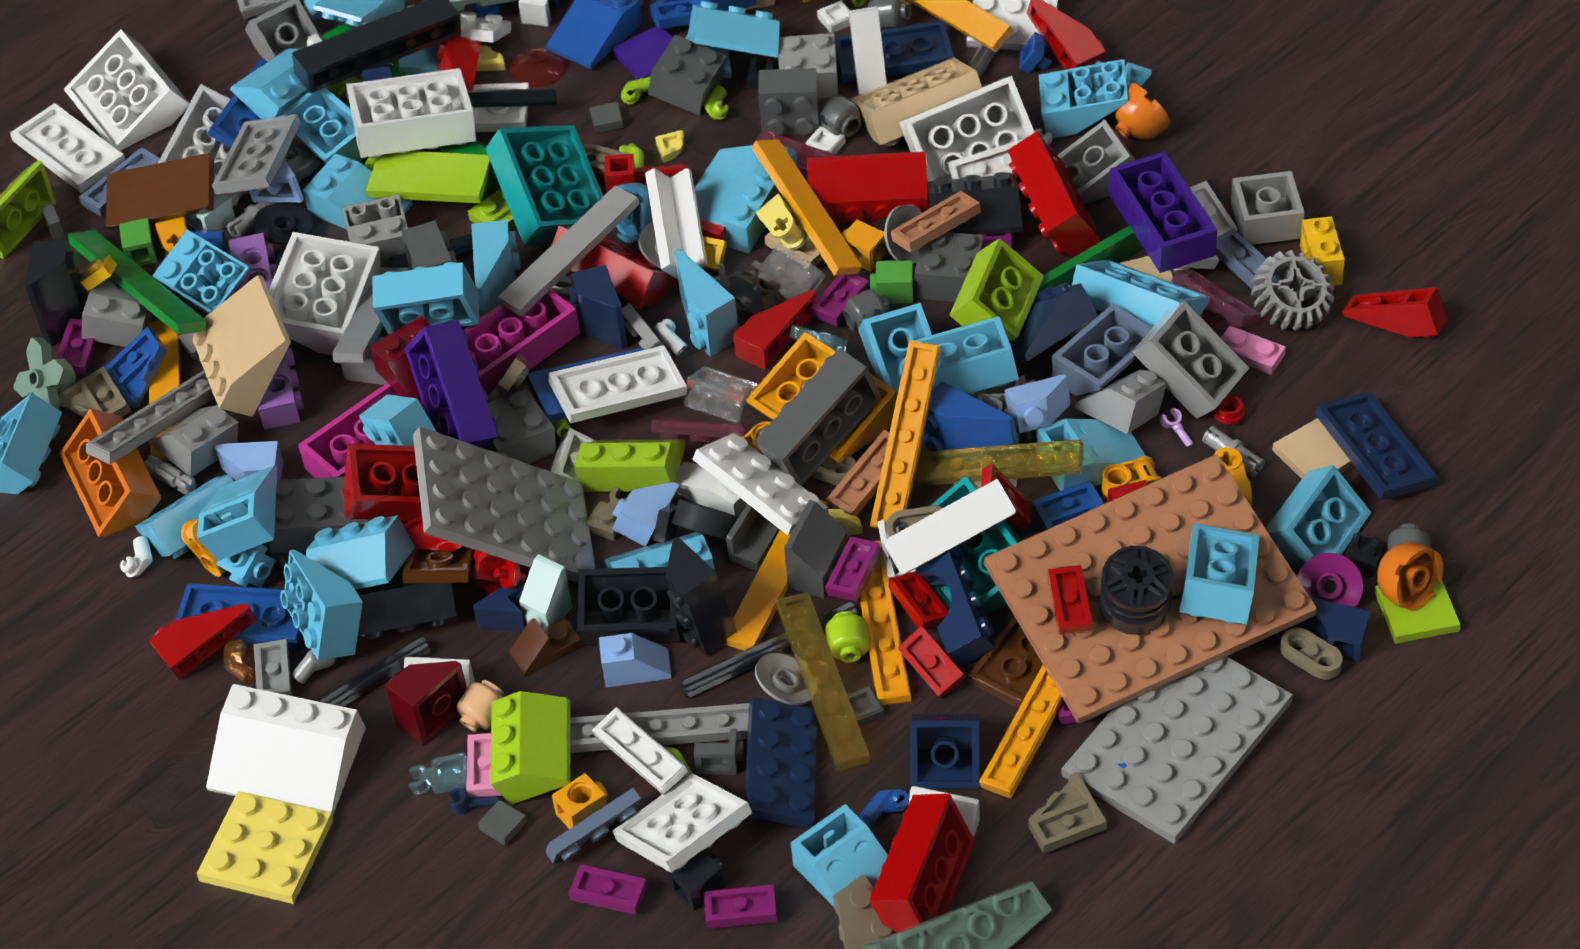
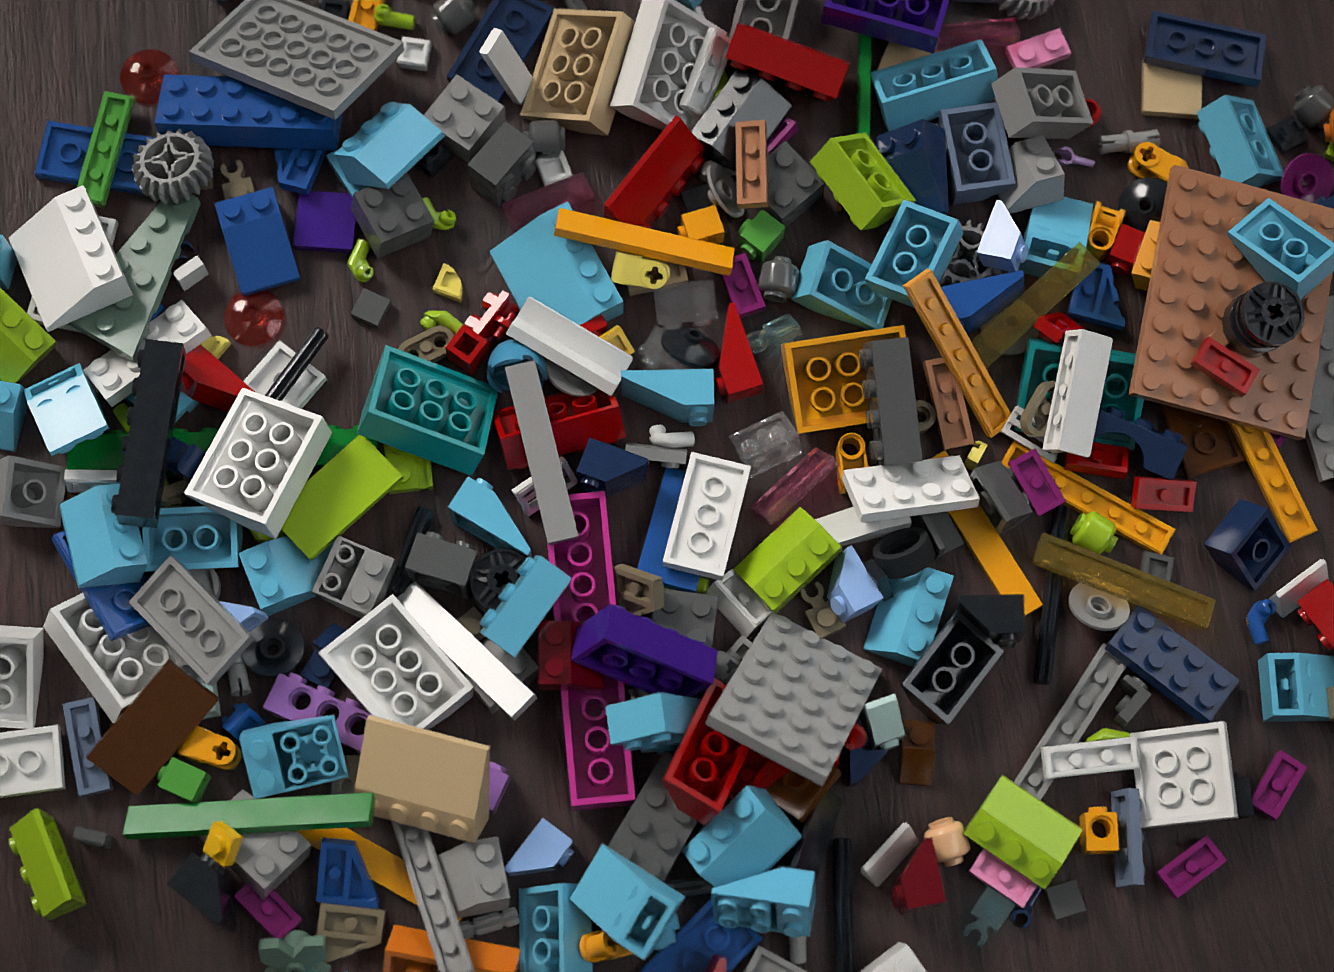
camera: 60 degrees left, 25 degrees up
(632, 660) = (989, 700): light blue slope -> none

